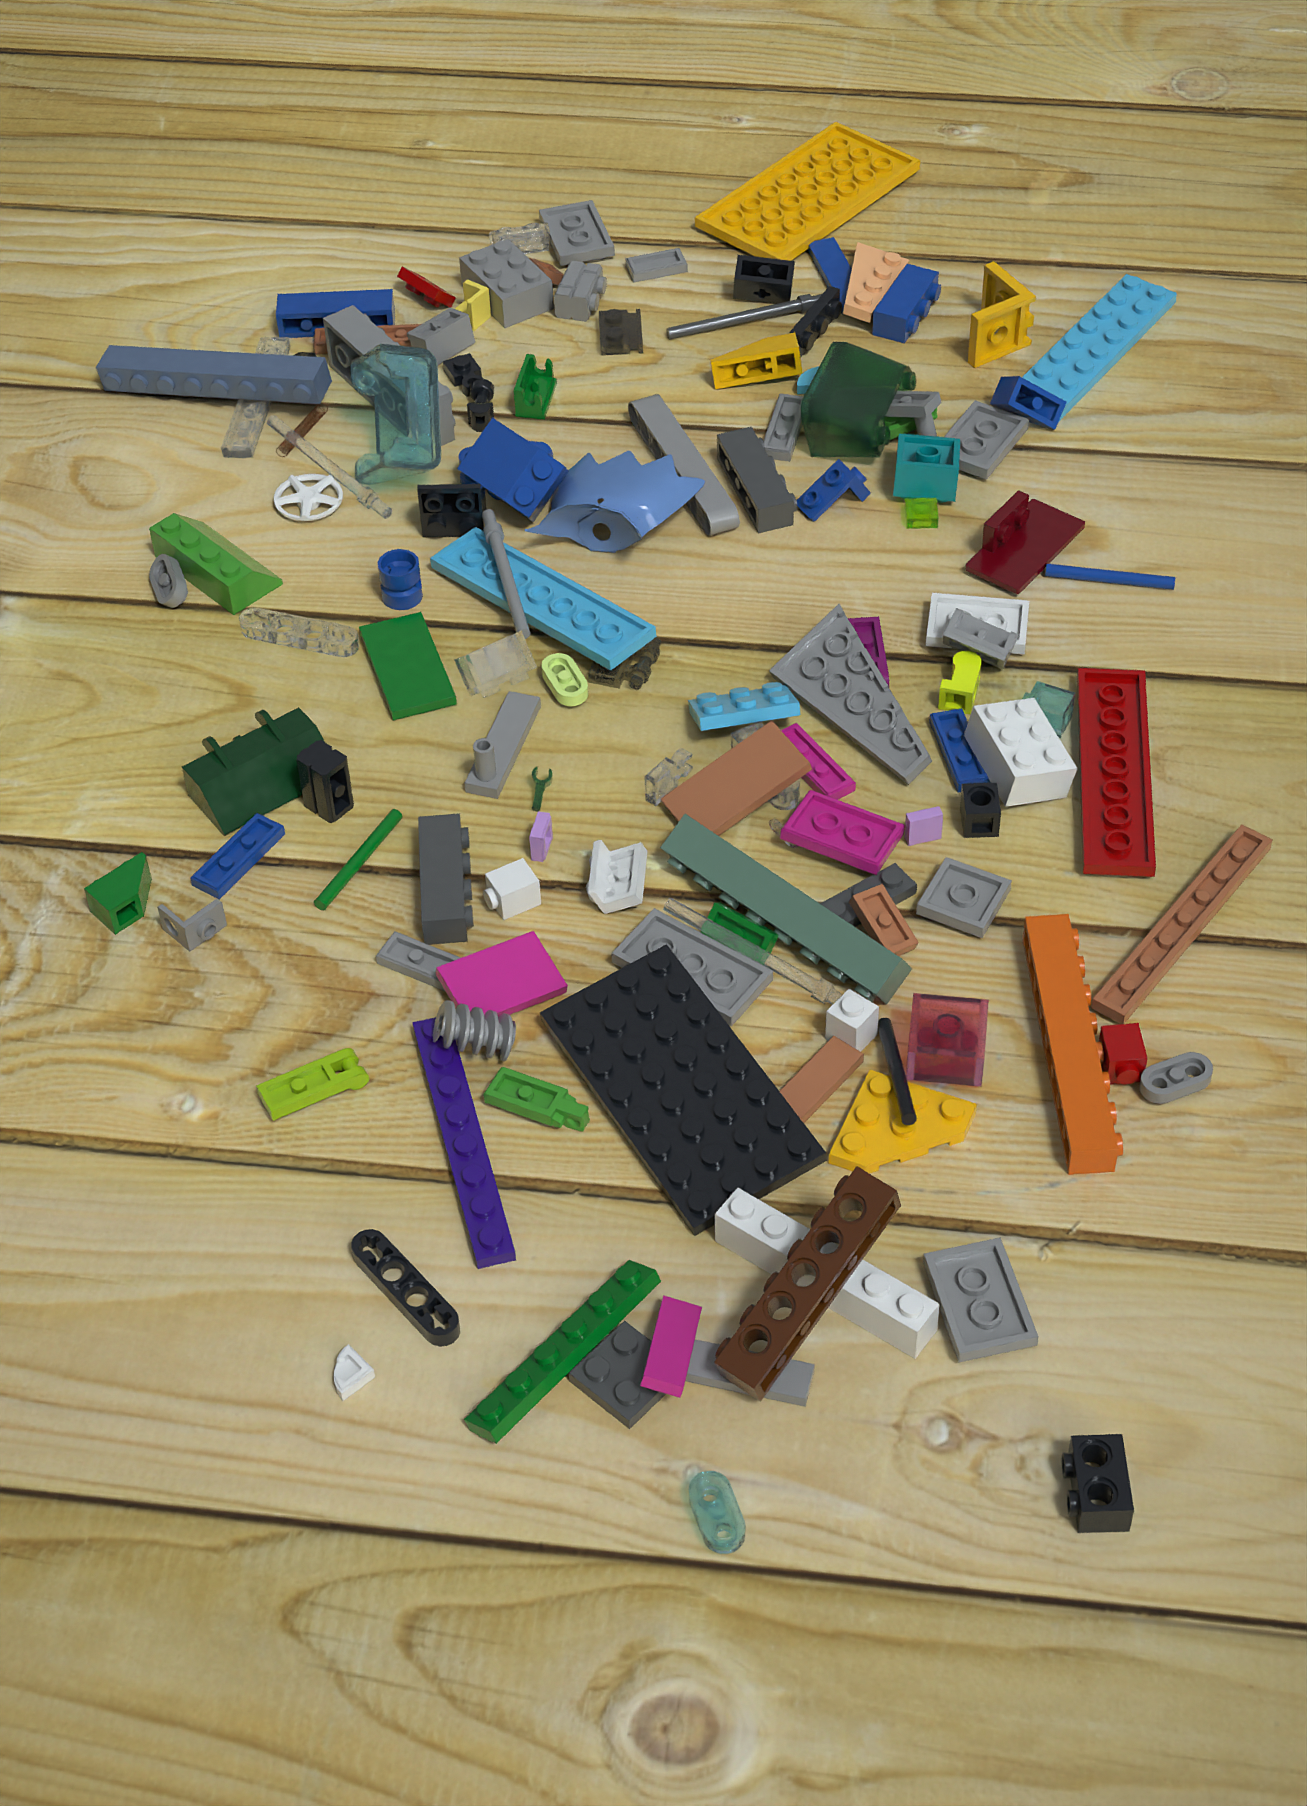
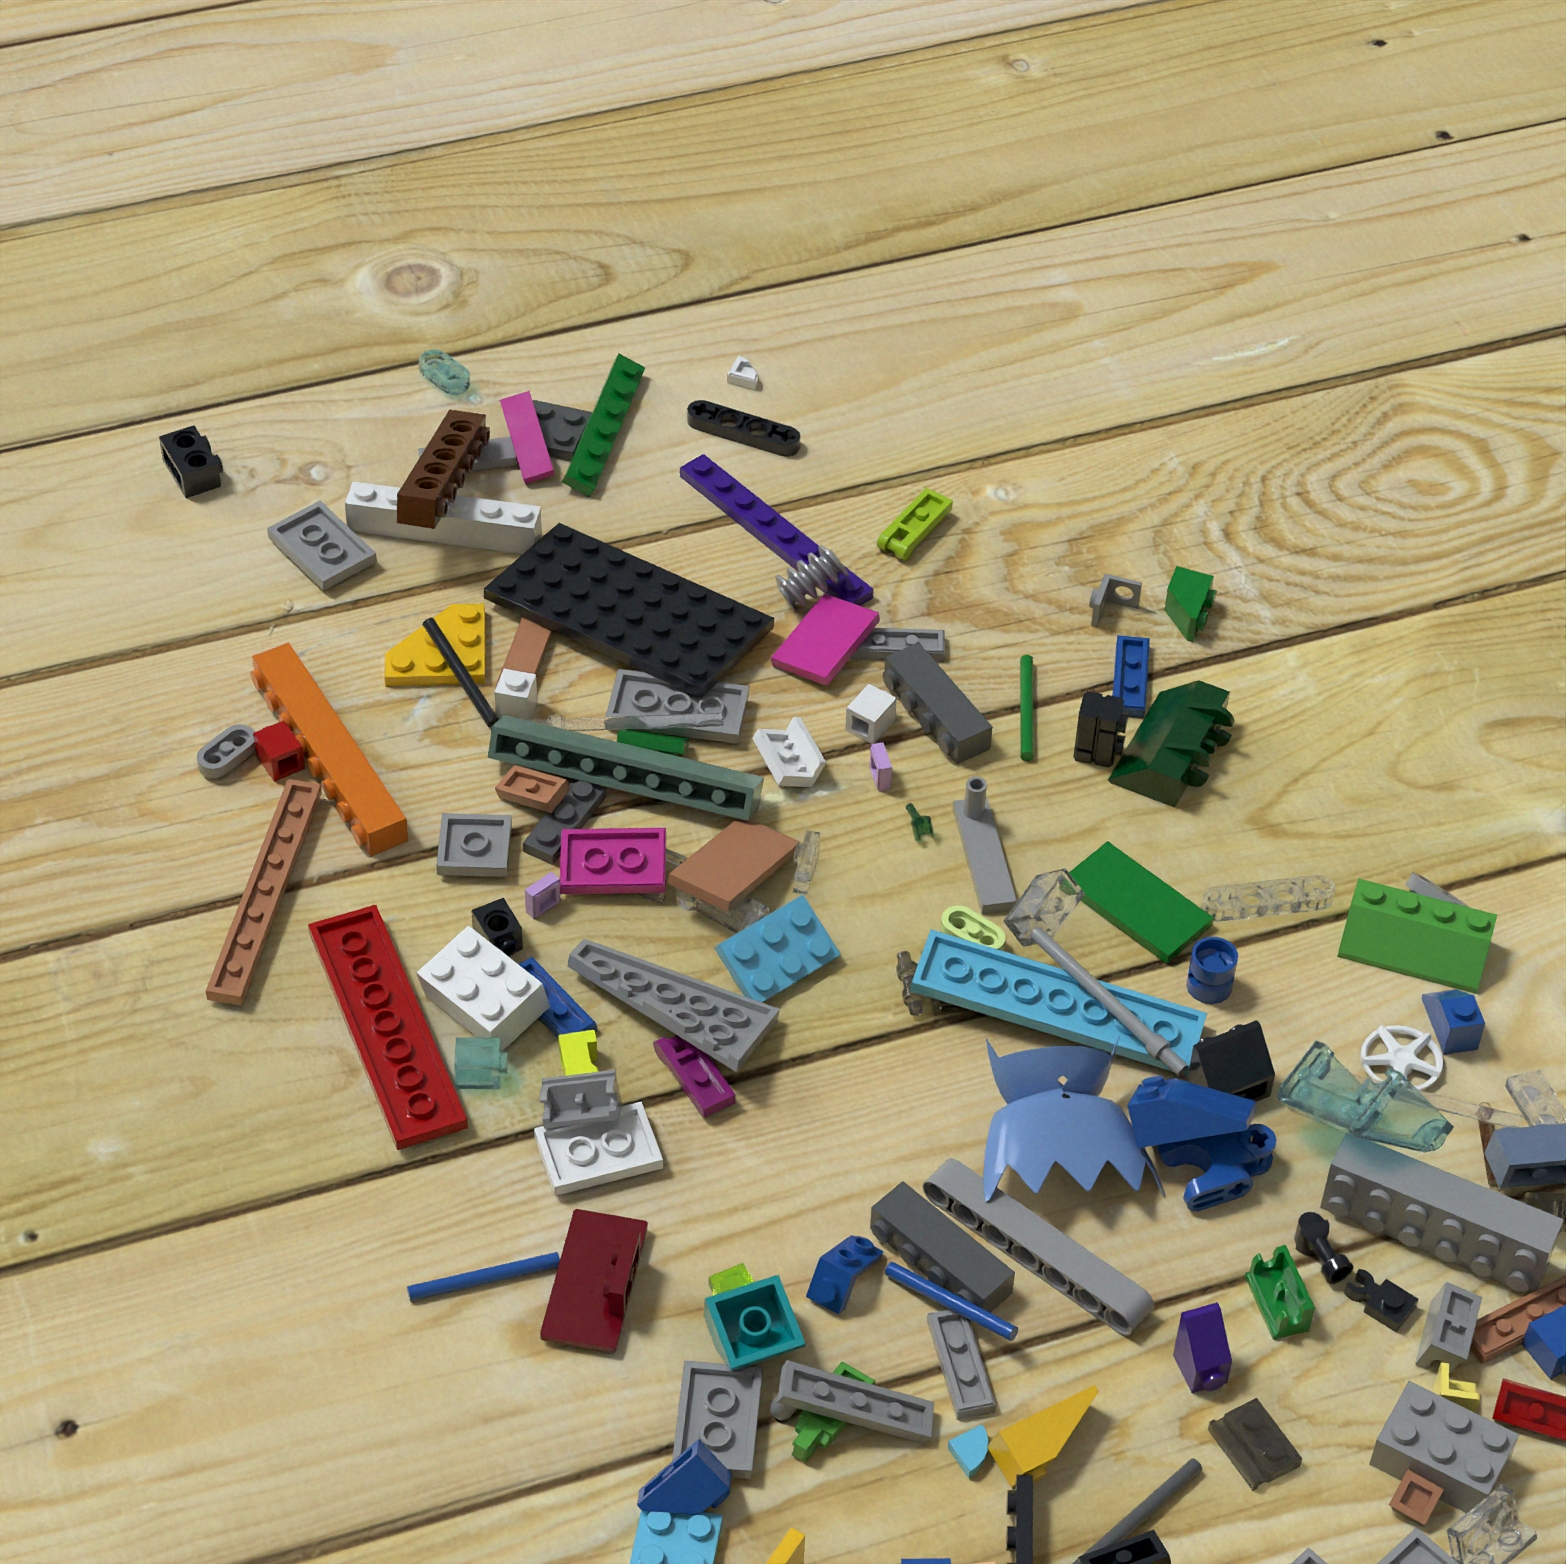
camera: 150 degrees right, 0 degrees up
(244, 500) = (1454, 1020): none -> blue slope
(536, 1100) = (734, 566): bright green hinge -> none
(579, 291) = (1347, 1478): light grey brick -> none
(619, 367) = (1203, 1348): none -> dark purple slope
(771, 447) = (951, 1301): none -> blue bar
(826, 774) = (679, 936): dark pink tile -> none
(849, 401) = (887, 1389): clear green windscreen -> none
(947, 1039) = (428, 701): clear pink brick -> none

